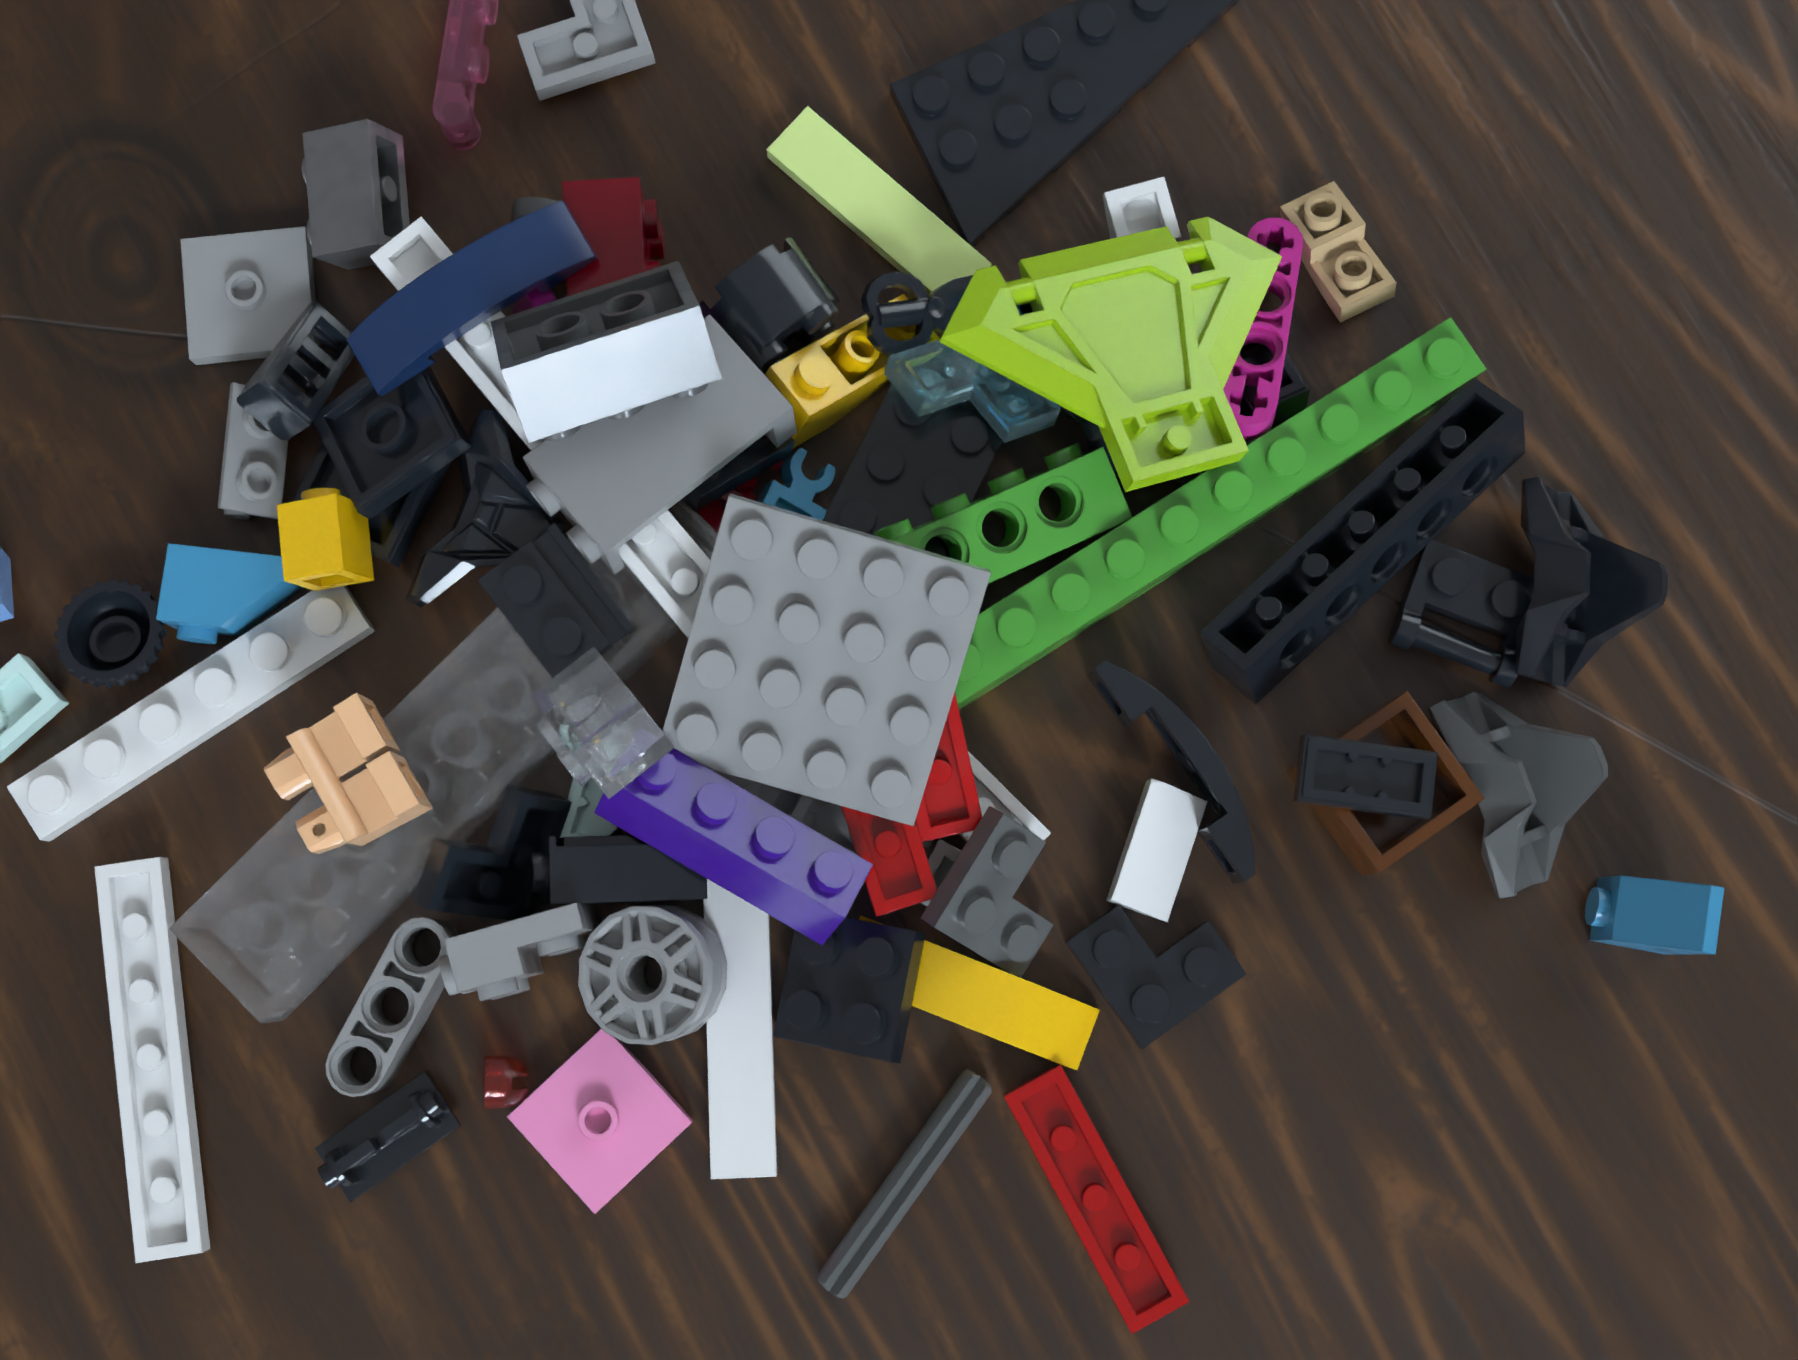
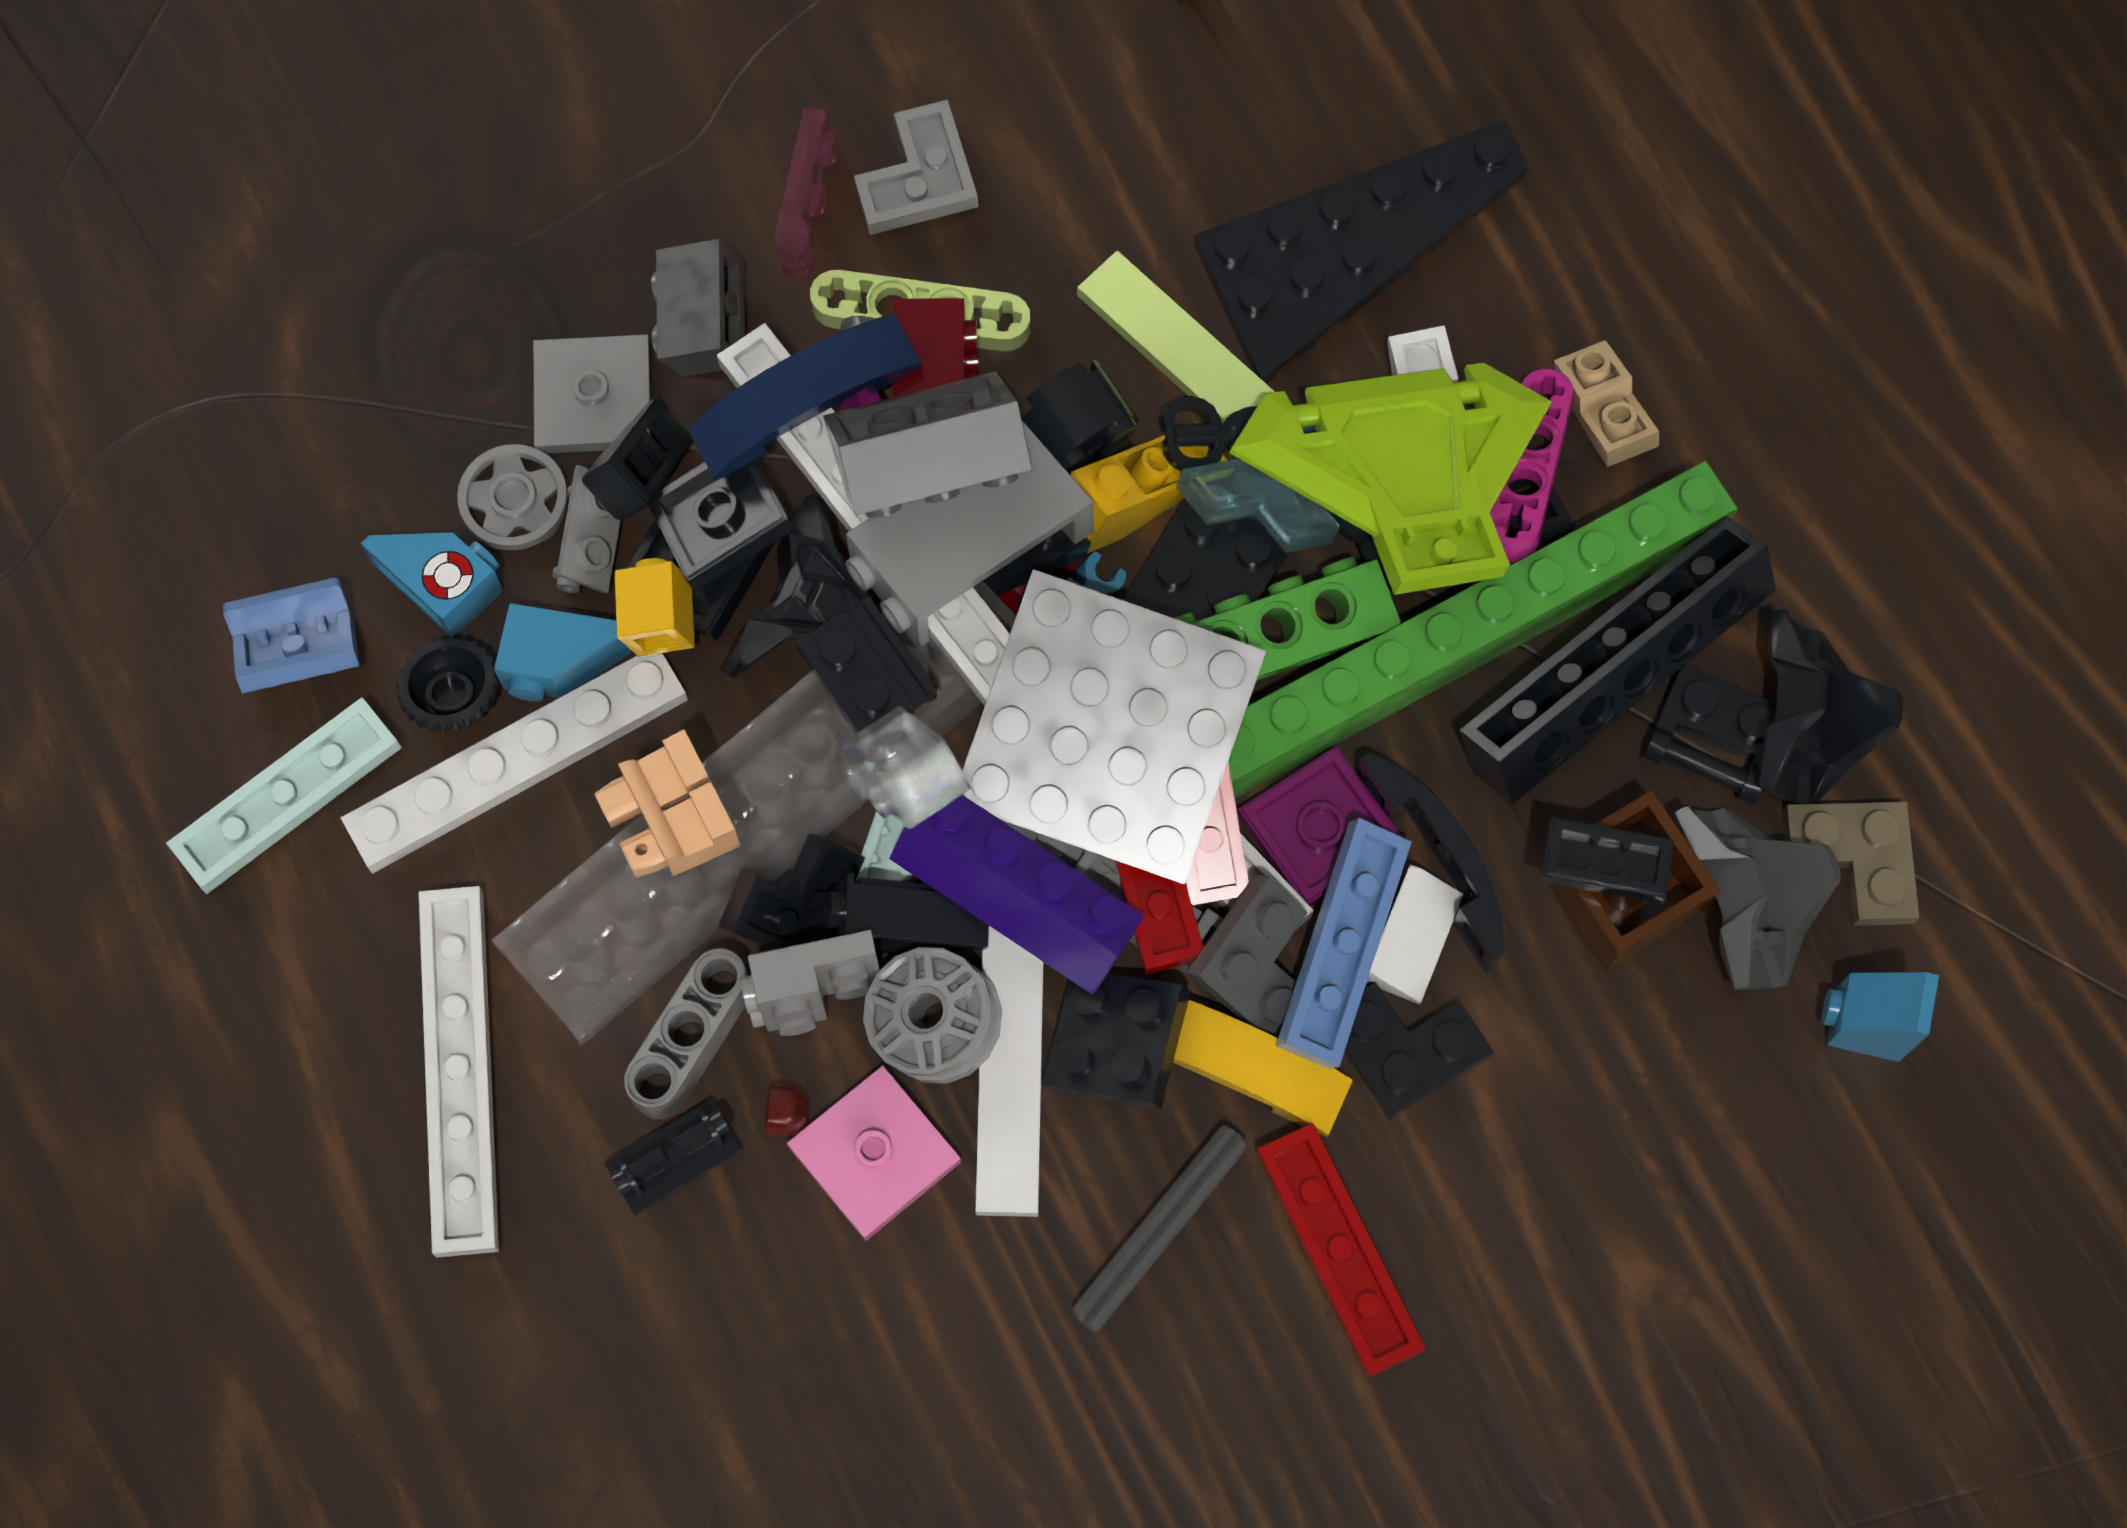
camera: 10 degrees right, 10 degrees down
(93, 511) = (438, 574): none -> dark azure slope
(170, 416) = (513, 497): none -> light grey wheel
(599, 166) = (878, 286): none -> yellowish green beam
(1054, 737) = (1306, 819): none -> magenta tile
(1085, 871) = (1343, 944): none -> medium blue plate
(1633, 725) = (1875, 848): none -> dark tan plate

